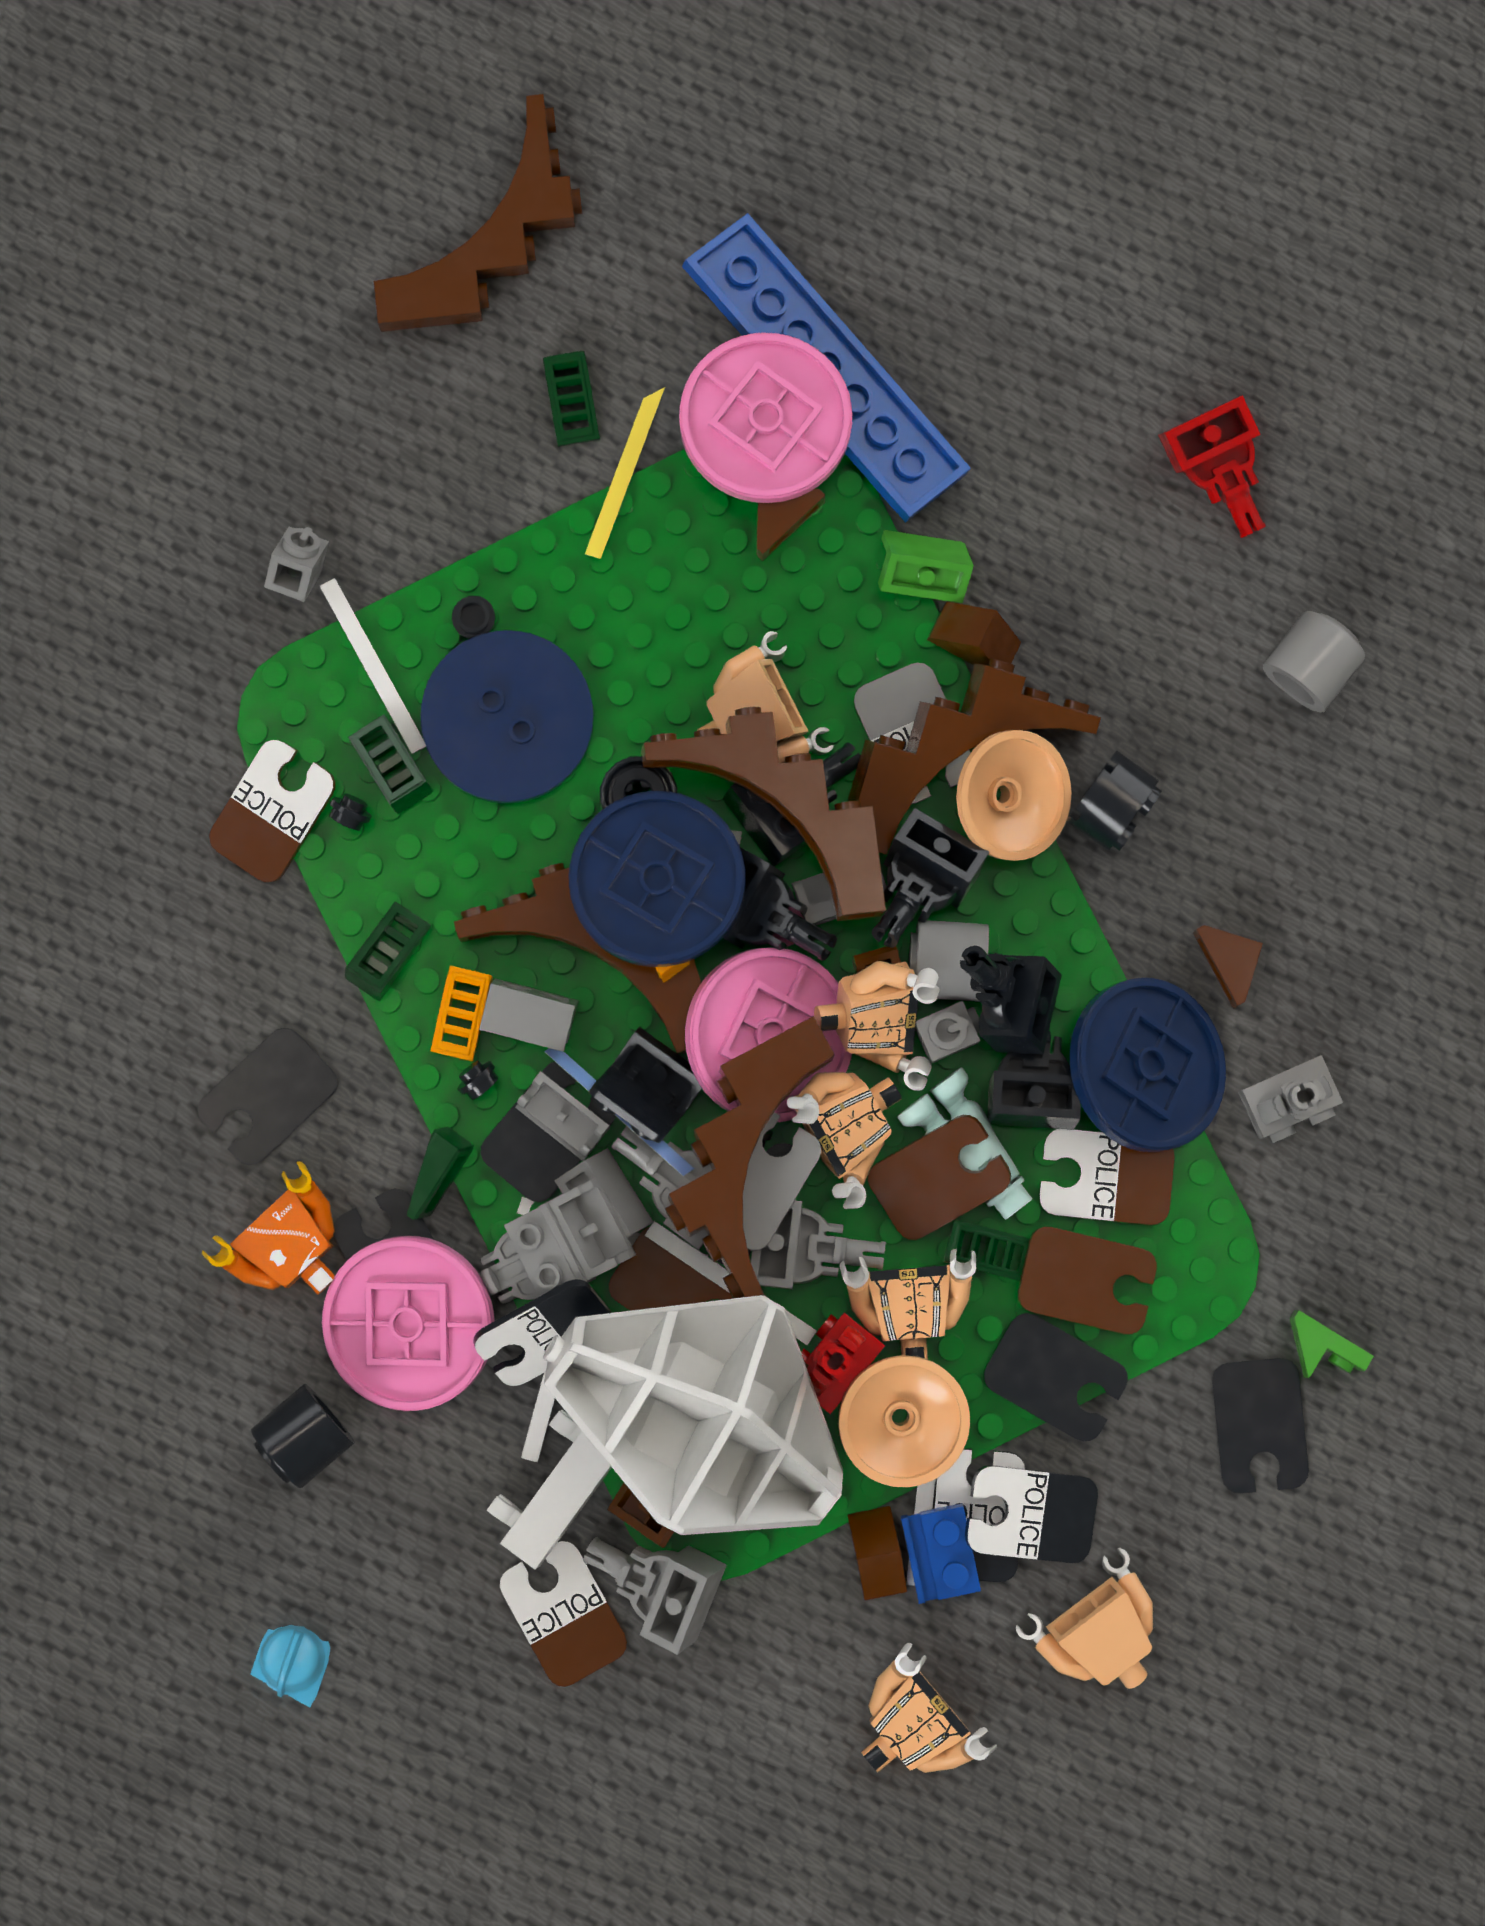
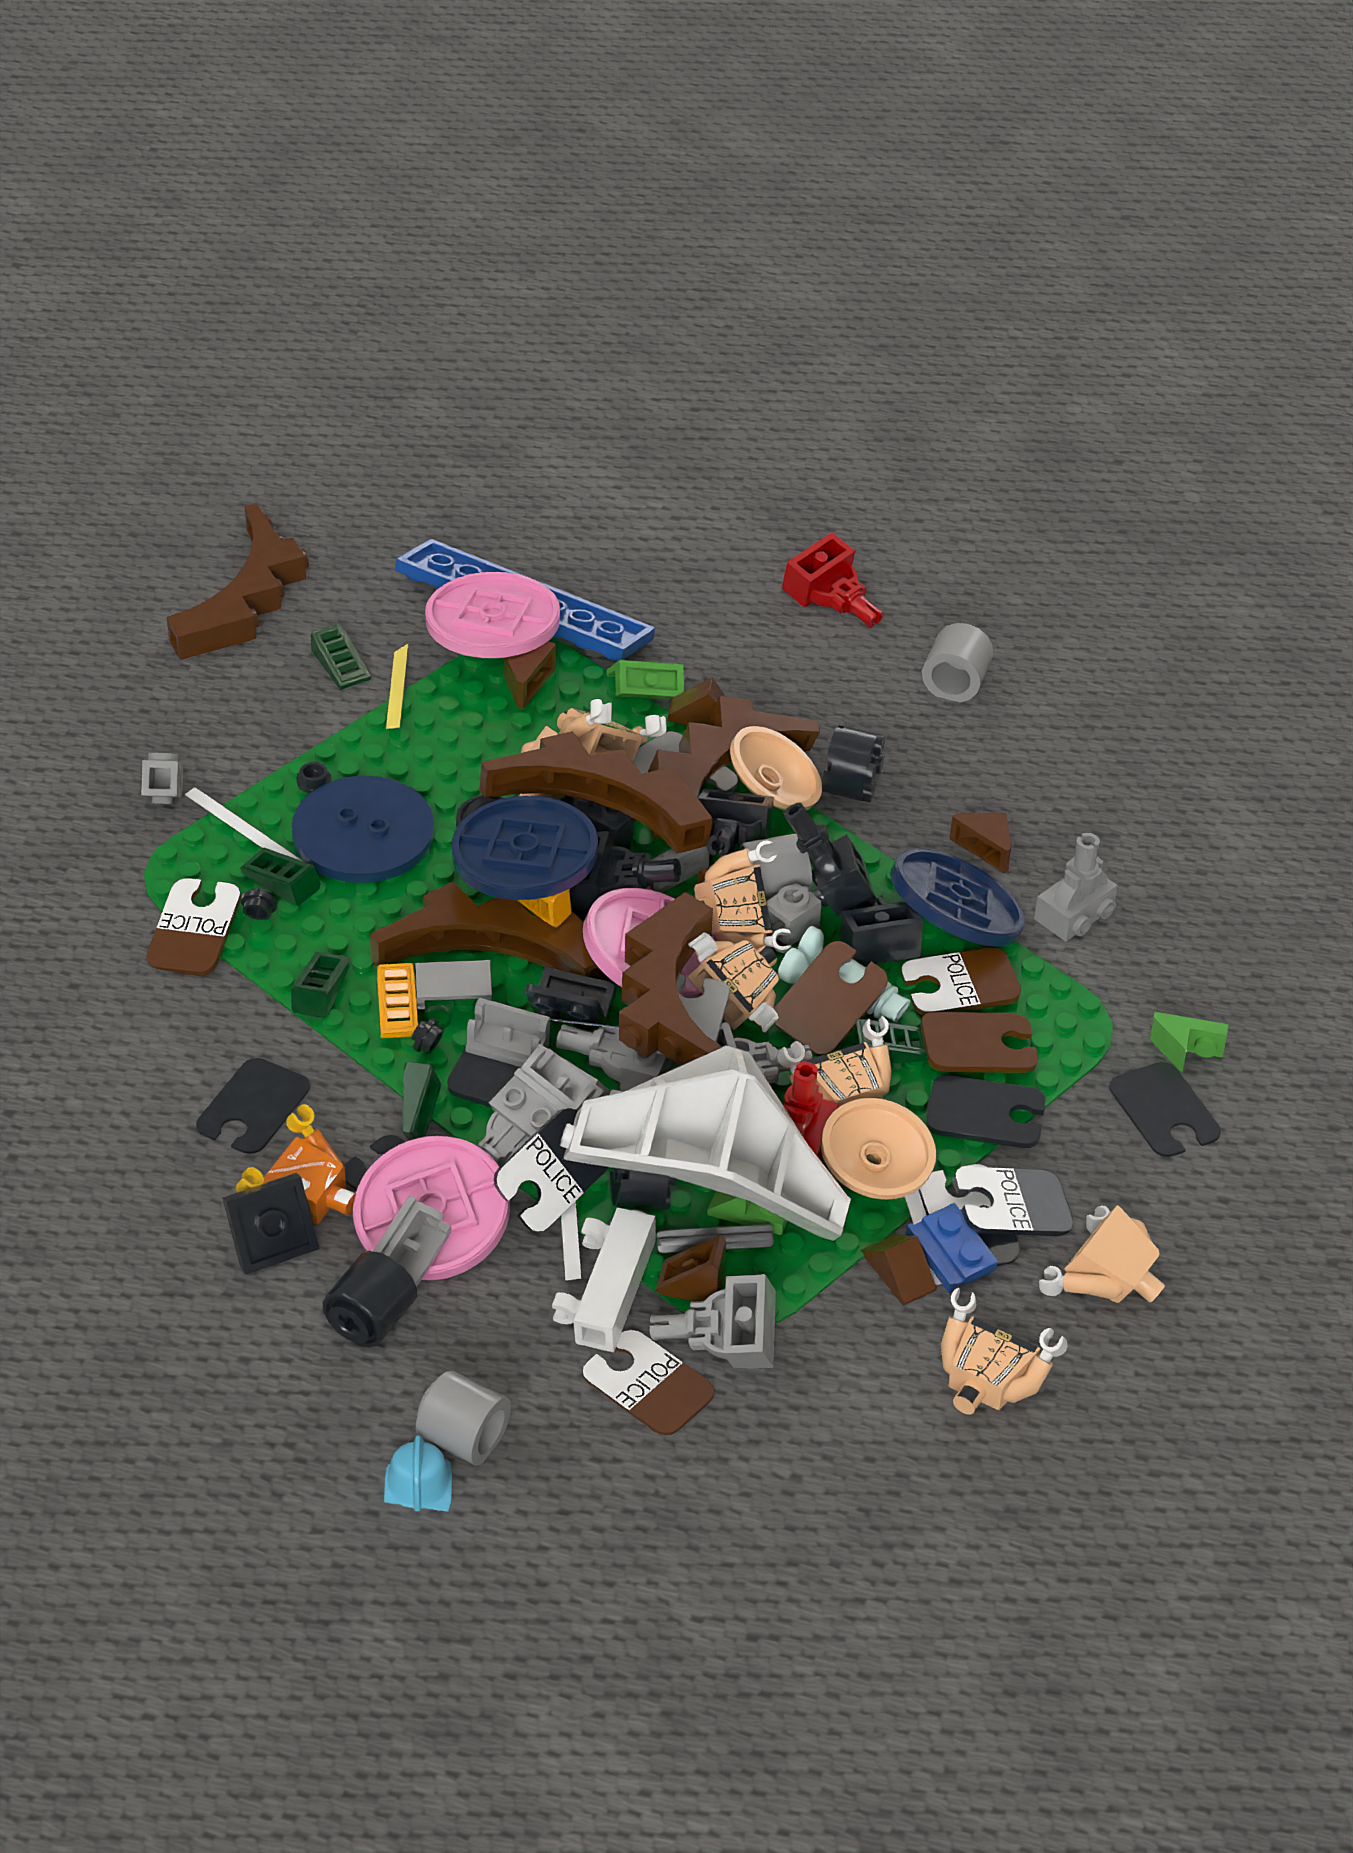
camera: 20 degrees left, 40 degrees down
(229, 1300) = (271, 1223): none -> black plate
(349, 1620) = (462, 1417): none -> light grey piece
(365, 1380) = (415, 1237): none -> light grey hinge
(825, 674) = (602, 735): none -> light nougat torso

